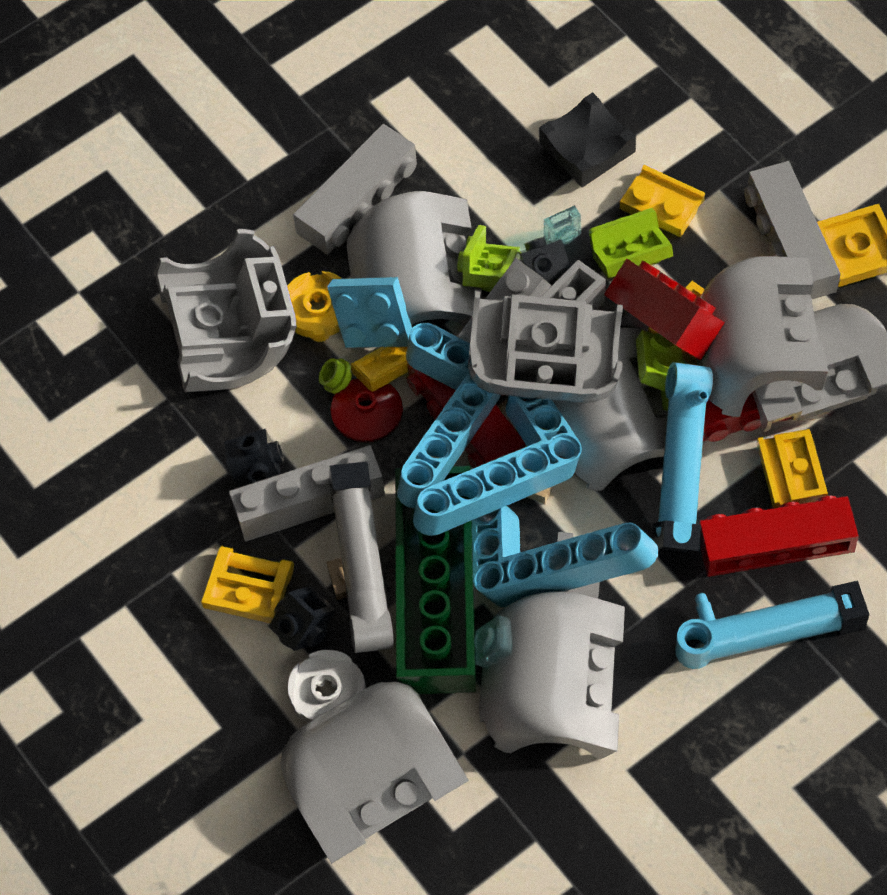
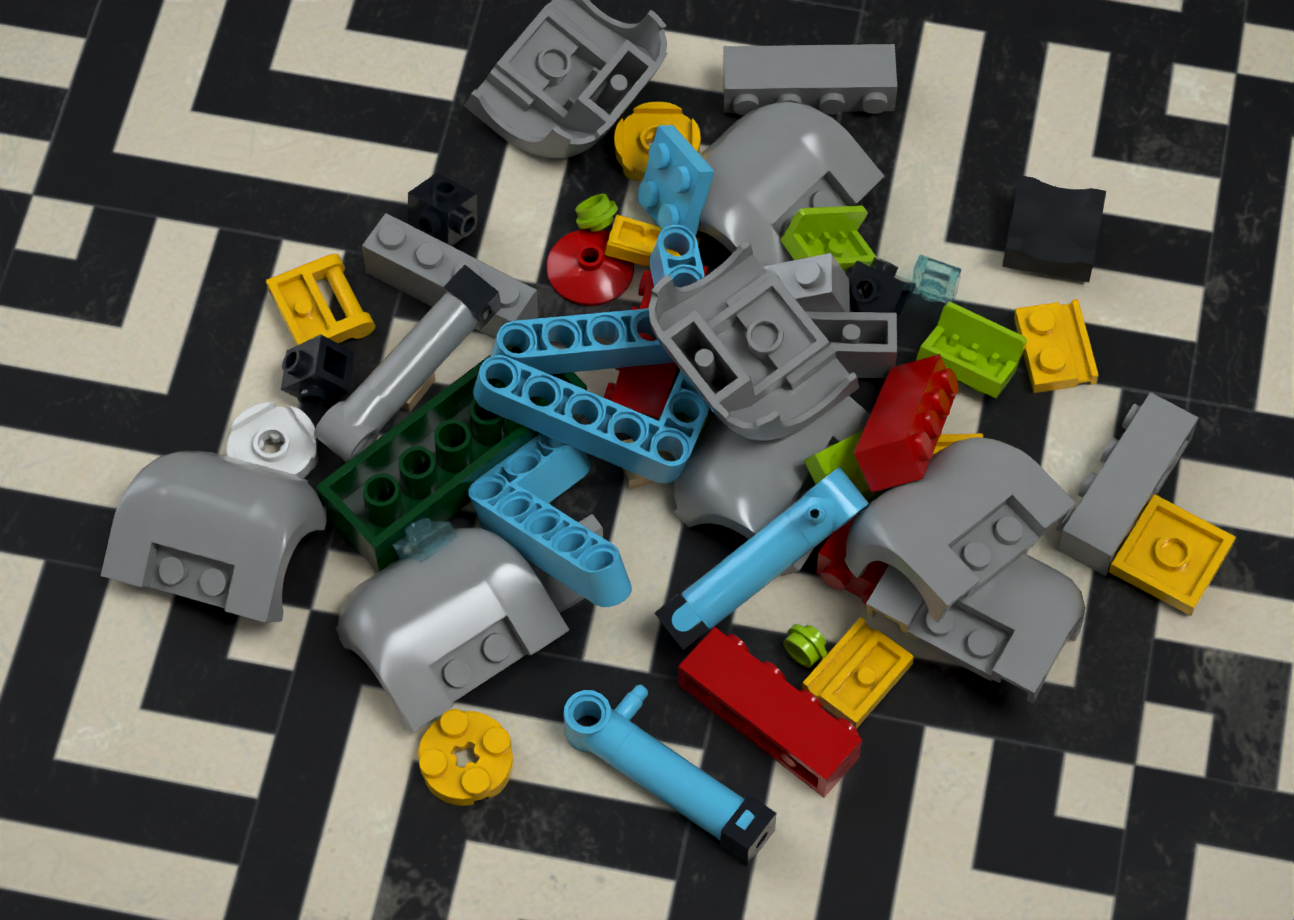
camera: 45 degrees right, 0 degrees up
(648, 755) = (455, 733): none -> yellow plate
(749, 482) = (805, 645): none -> lime plate

